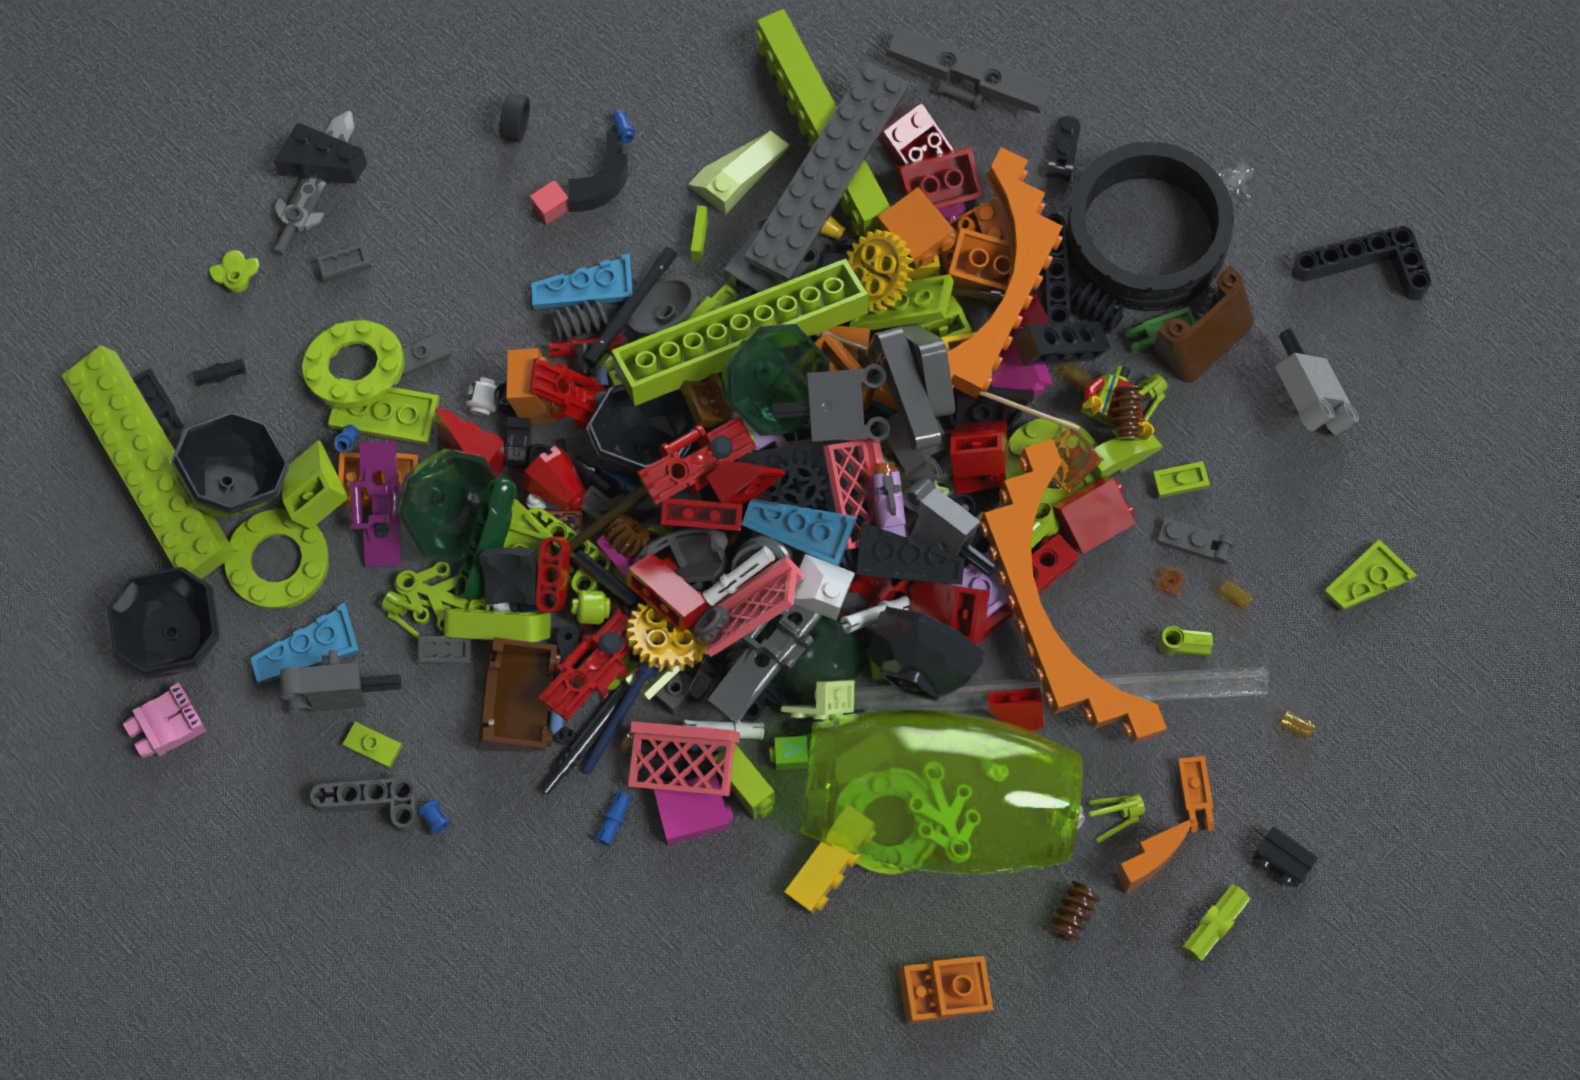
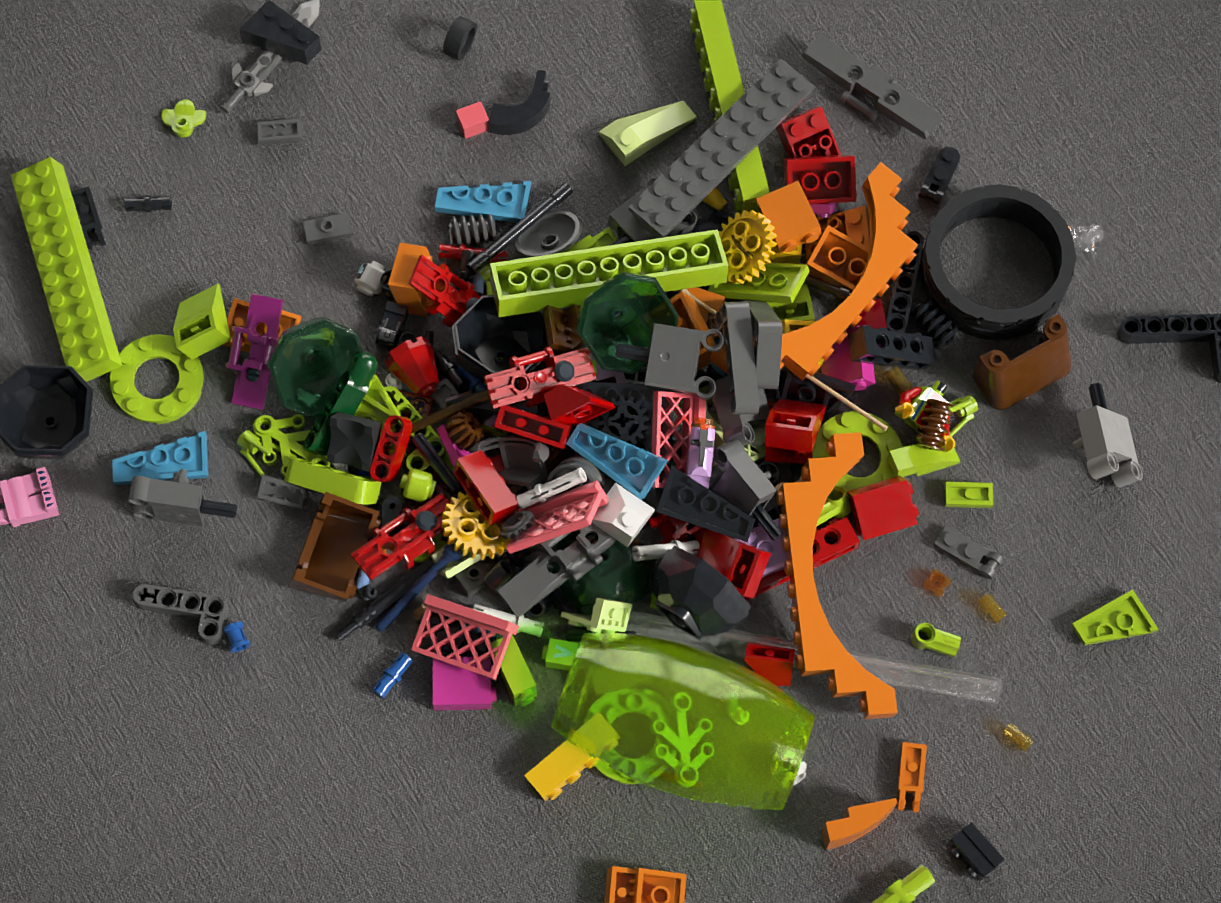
camera: 10 degrees right, 0 degrees up
(230, 451) = (139, 275): black rock -> none
(345, 441) = (240, 289): blue pin -> none
(363, 391) = (266, 249): lime plate -> none
(372, 745) = (199, 561): lime plate -> none
(397, 416) = (281, 271): lime plate -> none
(469, 438) = (348, 312): red slope -> none
(624, 131) = (554, 71): blue pin -> none
(699, 233) = (596, 177): lime tile -> none
(1073, 912) = (774, 855): reddish brown piece -> none
(1077, 459) = (879, 454): clear yellow tile -> none
(1127, 805) = (847, 773): lime plant -> none
(1152, 326) = (976, 352): bright green hinge -> none

